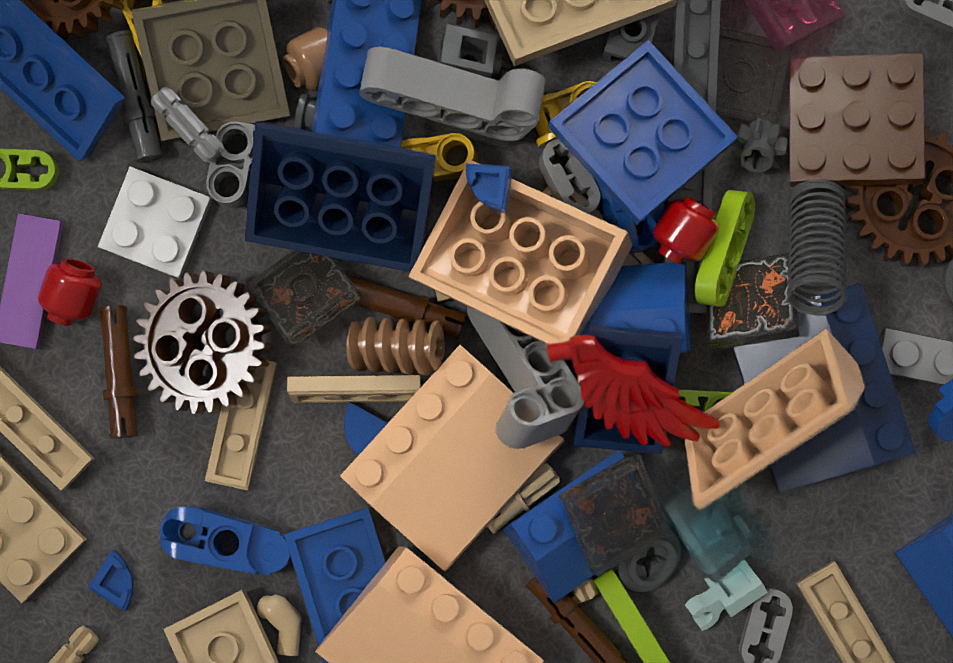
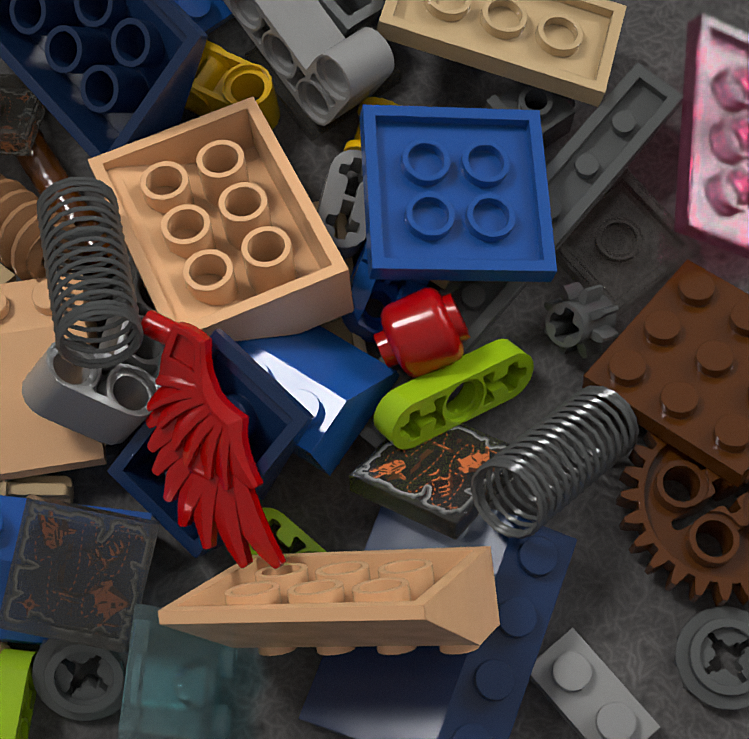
camera: 35 degrees right, 15 degrees down
(451, 324) = (99, 307): none -> dark grey piece
(490, 185) = (250, 128): blue tile -> none

